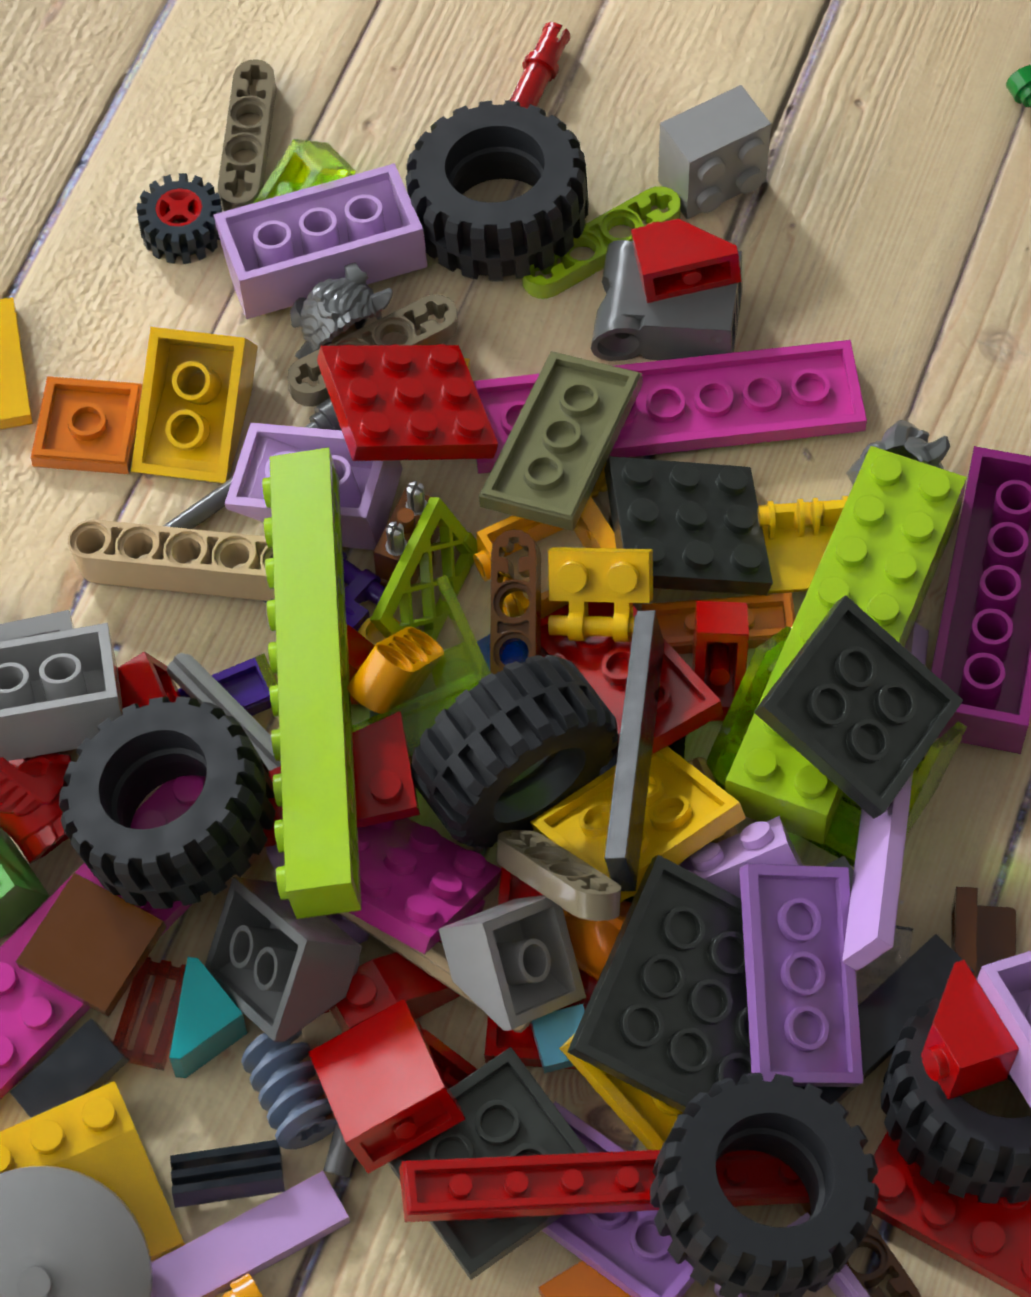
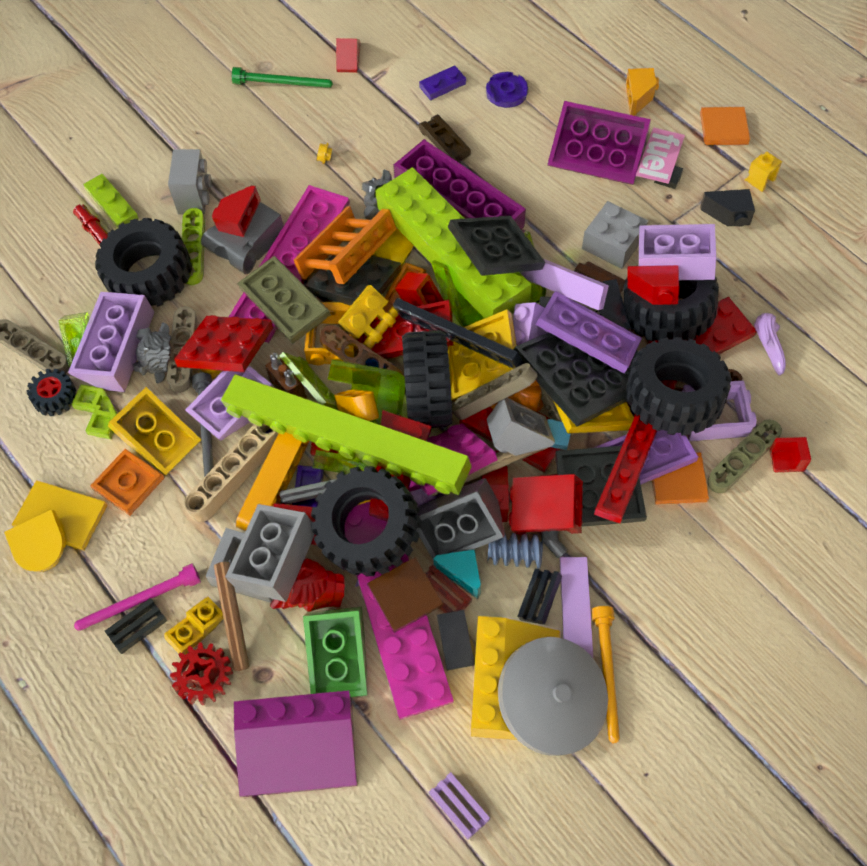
camera: 60 degrees left, 0 degrees up
(205, 628) = (273, 476): none -> light orange beam
(207, 295) = (97, 402): none -> lime tile
(610, 66) = (110, 200): none -> lime plate
(733, 494) = (354, 254): none -> orange fence
(948, 323) = (324, 153): none -> yellow plate

